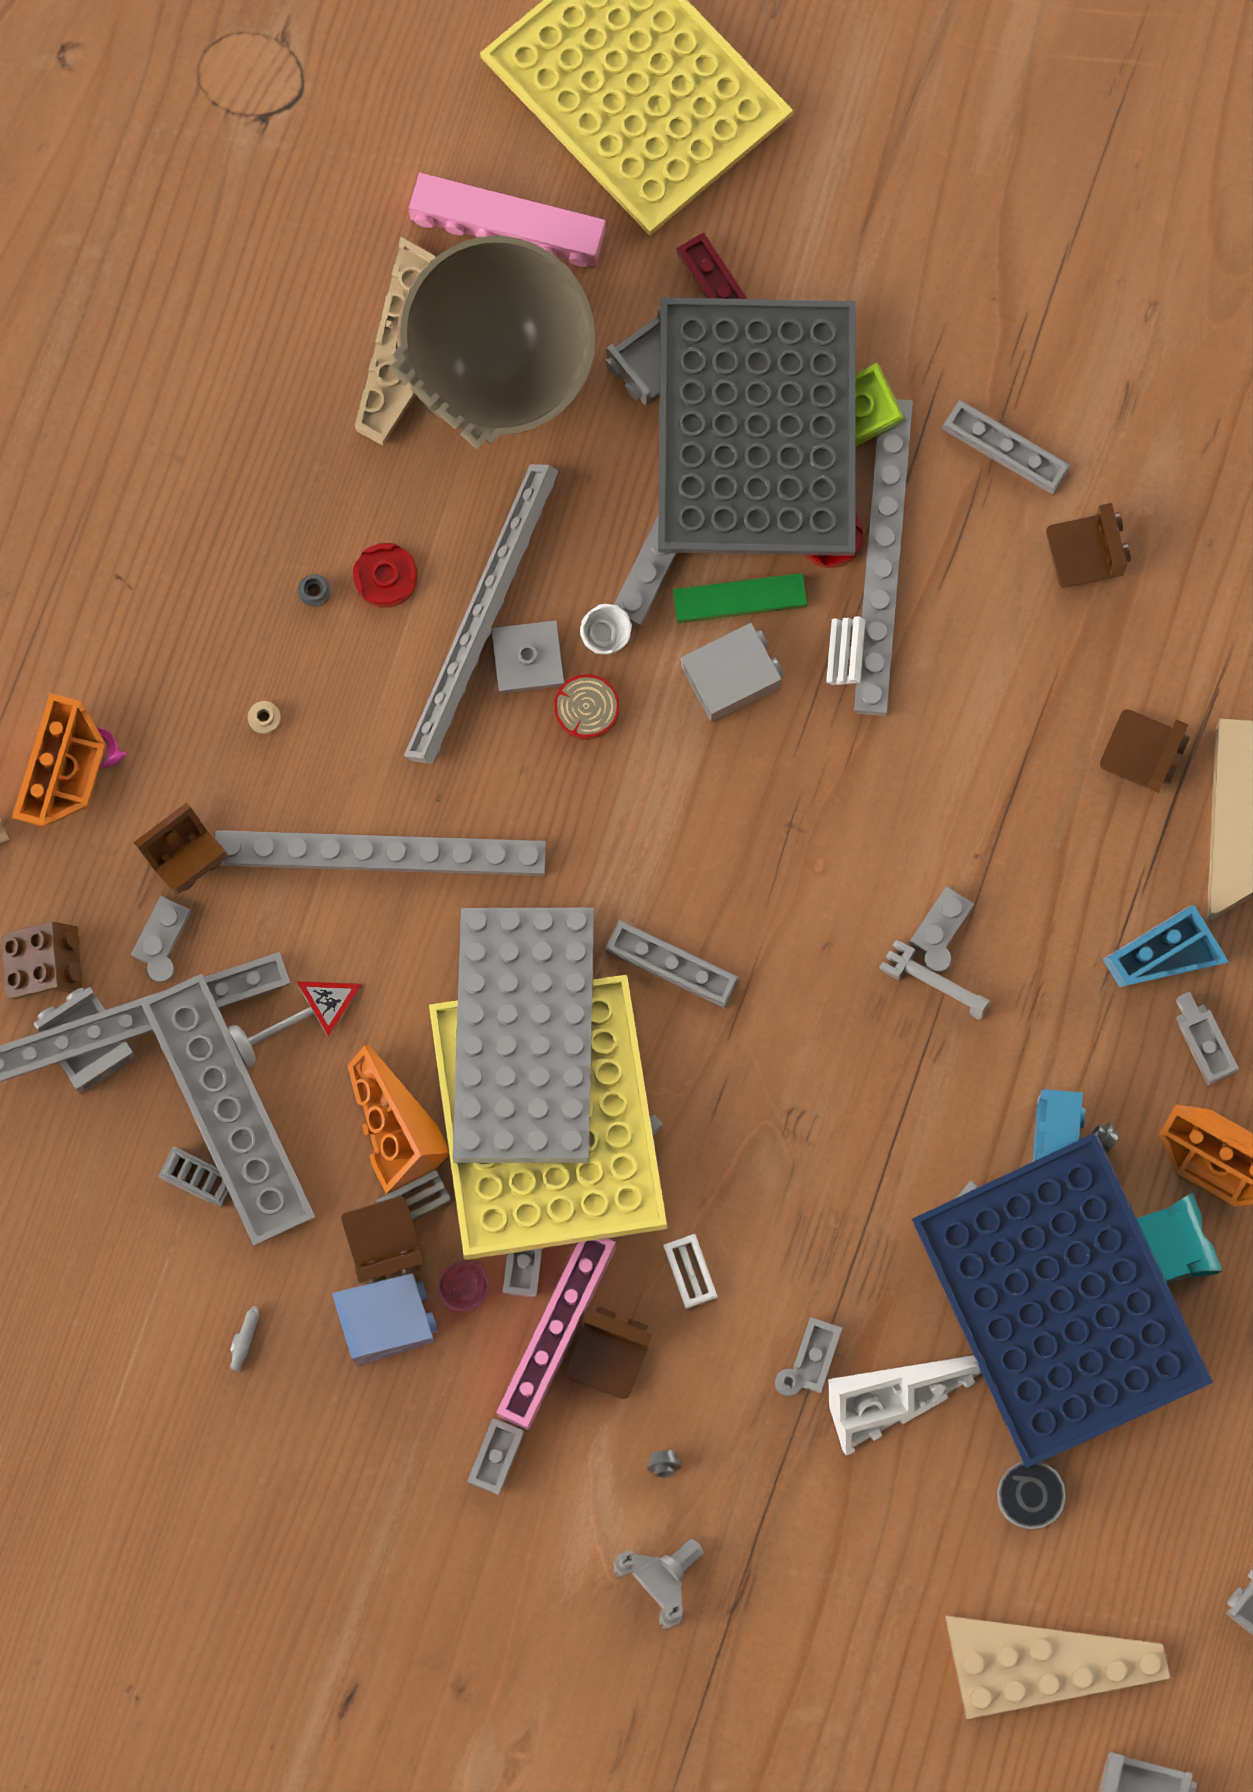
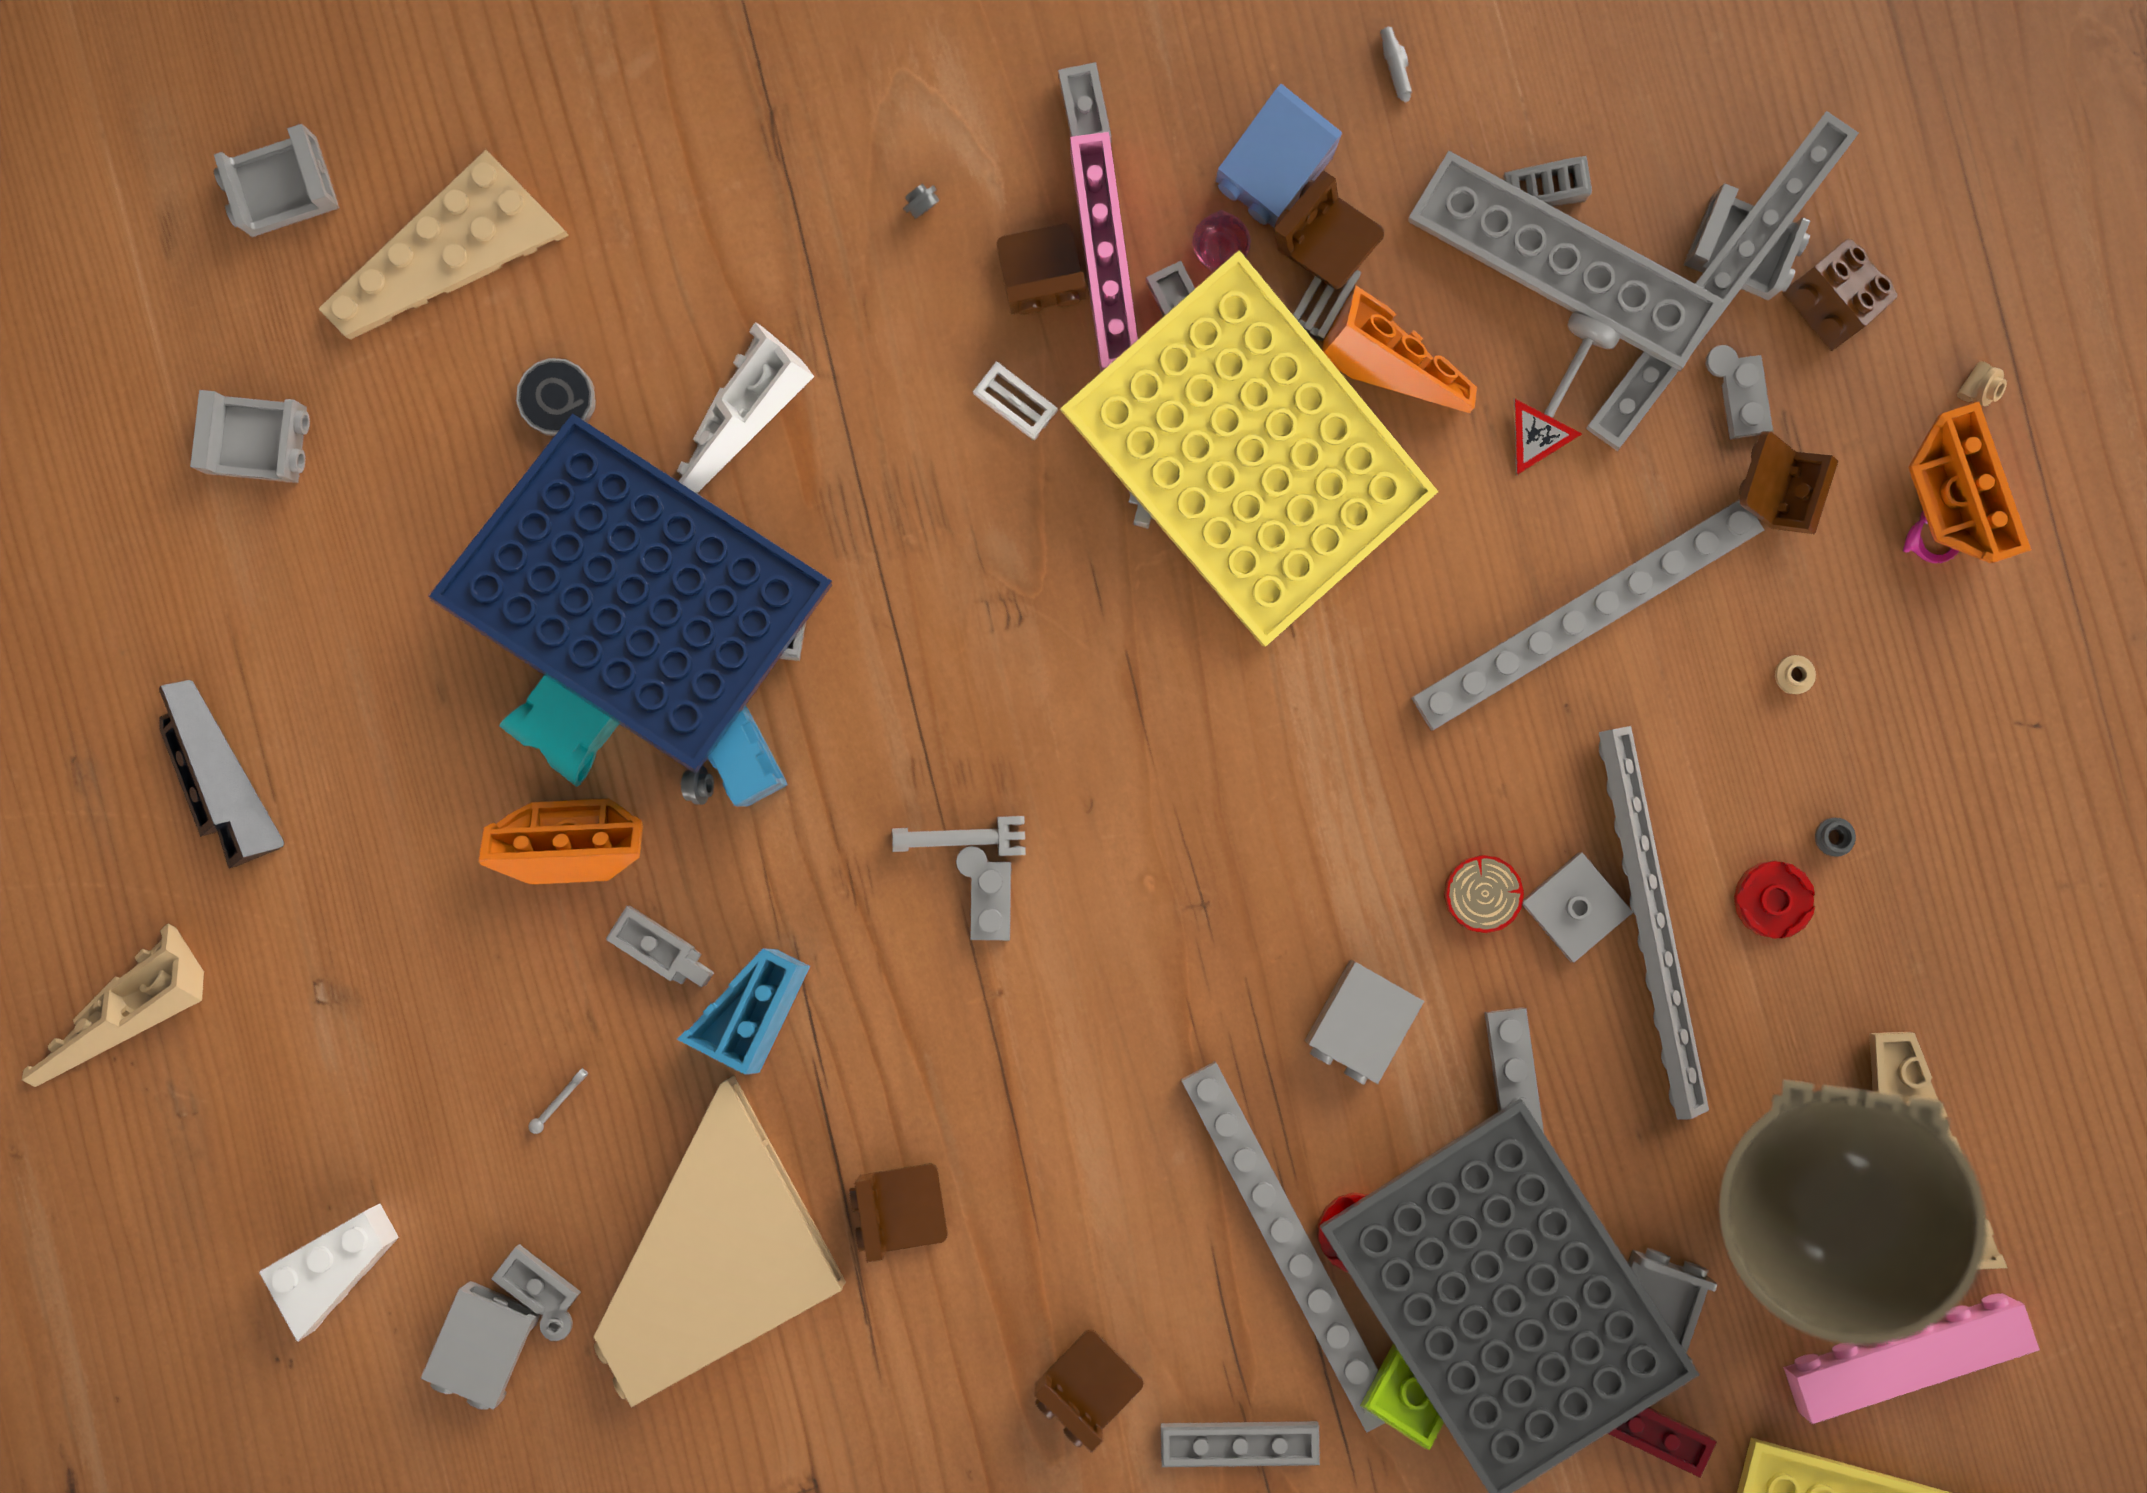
camera: 145 degrees right, 10 degrees up
(524, 1036) = (1325, 516): light grey plate -> none
(605, 629) = (1518, 983): white hair -> none
(661, 1577) = (853, 91): light grey axle -> none
(671, 964) = (1229, 688): light grey tile -> none
(739, 598) = (1405, 1106): green tile -> none
(812, 1359) = (843, 389): light grey hinge -> none
(841, 651) = (1267, 1115): white tile -> none

